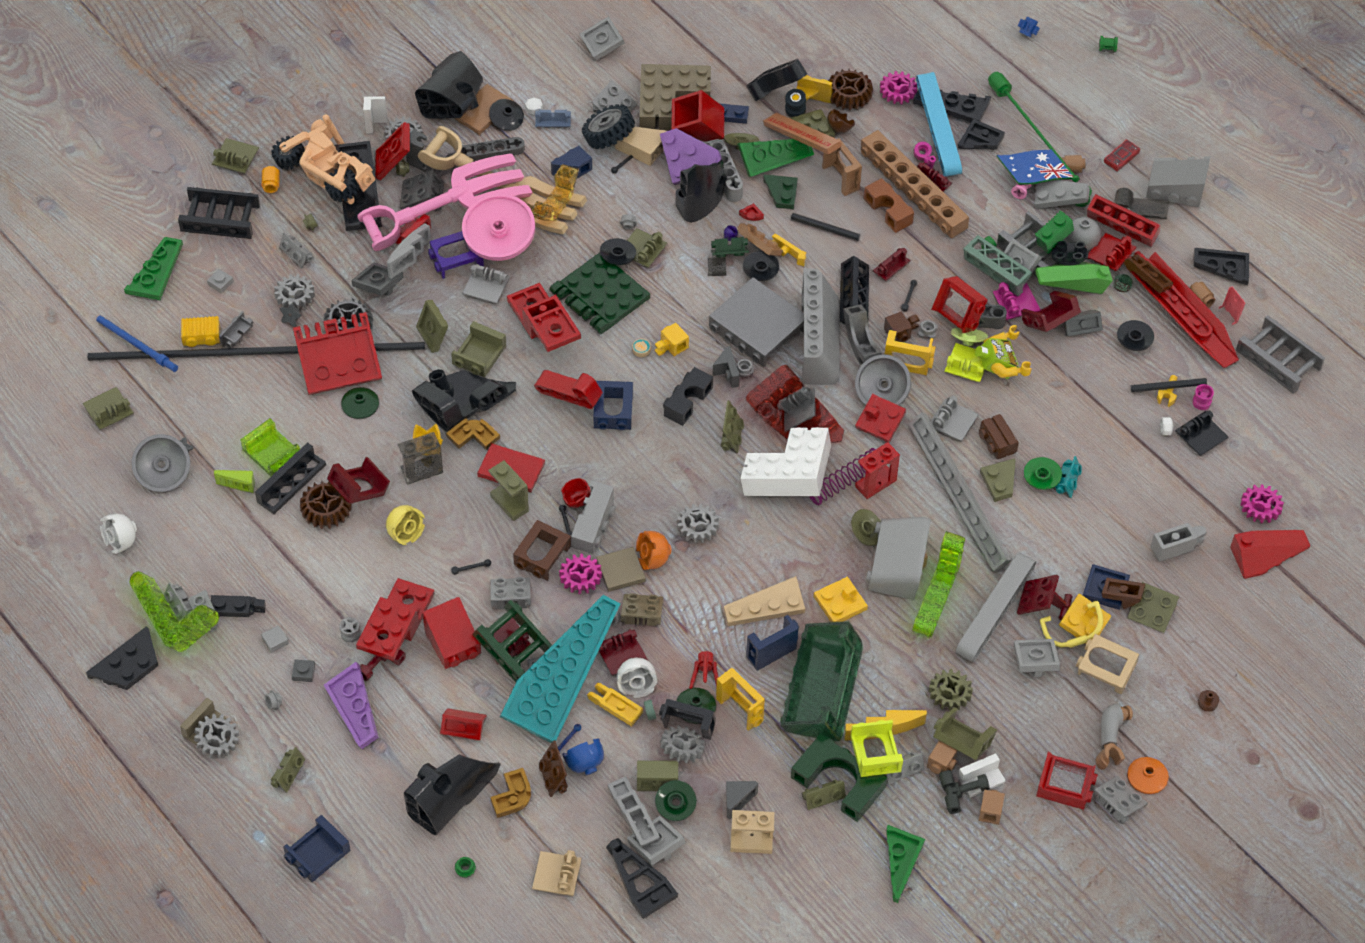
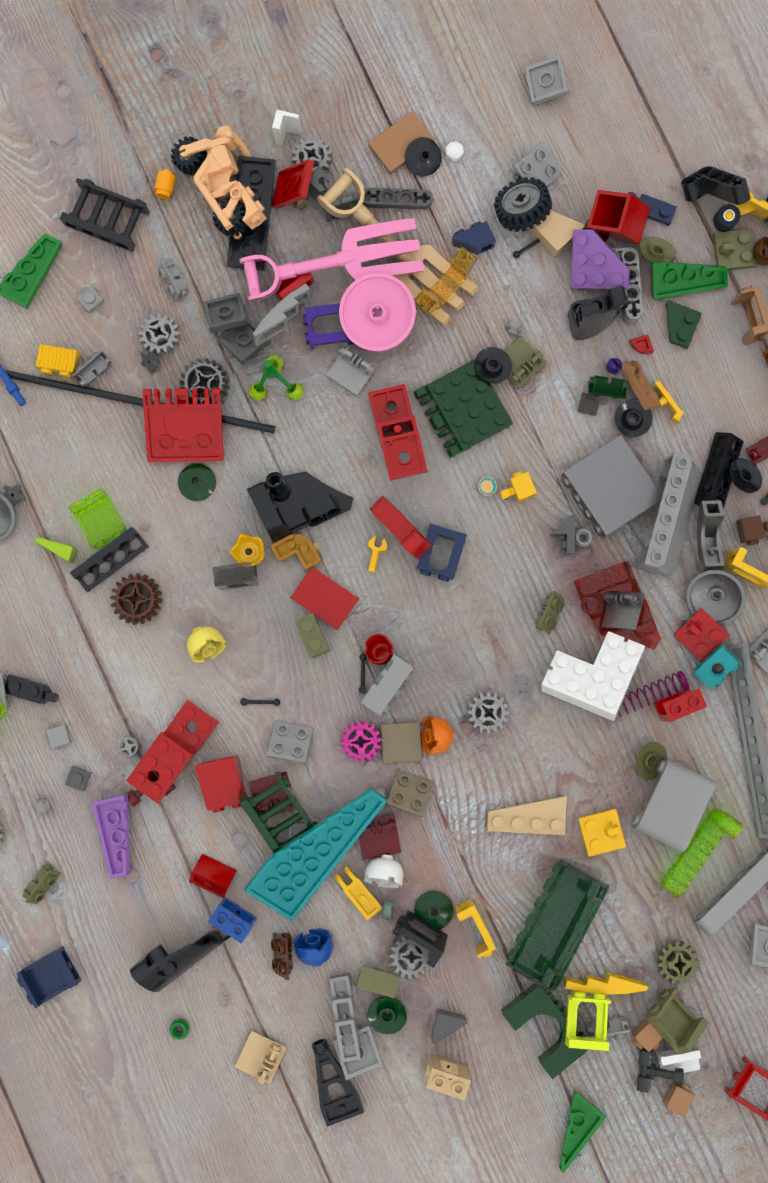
camera: 20 degrees right, 30 degrees up
(234, 155) = (136, 143): olive hinge -> none
(309, 221) = (193, 247): olive plate -> none
(345, 482) = (155, 593): dark red panel -> none
(353, 262) = (225, 313): none -> dark grey hinge
(410, 294) = (272, 367): none -> plant
(420, 189) = (314, 236): dark grey bracket -> none
(432, 325) = (284, 416): olive hinge -> none
(450, 88) = (373, 112): black panel -> none
(479, 349) = (325, 451): olive panel -> none
(495, 745) = (229, 922): none -> blue window
(517, 796) = (244, 968): pearl gold plate -> none
(546, 118) = (469, 174): sand blue hinge -> none
(549, 534) = (309, 706): reddish brown panel -> none
(550, 419) = (375, 553): none -> yellow bar
(577, 727) = (291, 926): clear blue hinge -> none
(665, 82) = (597, 162): dark tan piece -> none
(694, 384) = (504, 569): black arch -> none
(705, 664) = (454, 871): red plant -> none
(773, 647) = (526, 877): dark blue panel -> none
(802, 133) = (723, 266): nougat tile -> none
(824, 226) = (713, 381): black bar -> none
(827, 794) = (519, 1041): olive hinge -> none
(878, 287) = (745, 475): none -> black dish
(902, 426) = (722, 656): none -> teal brick

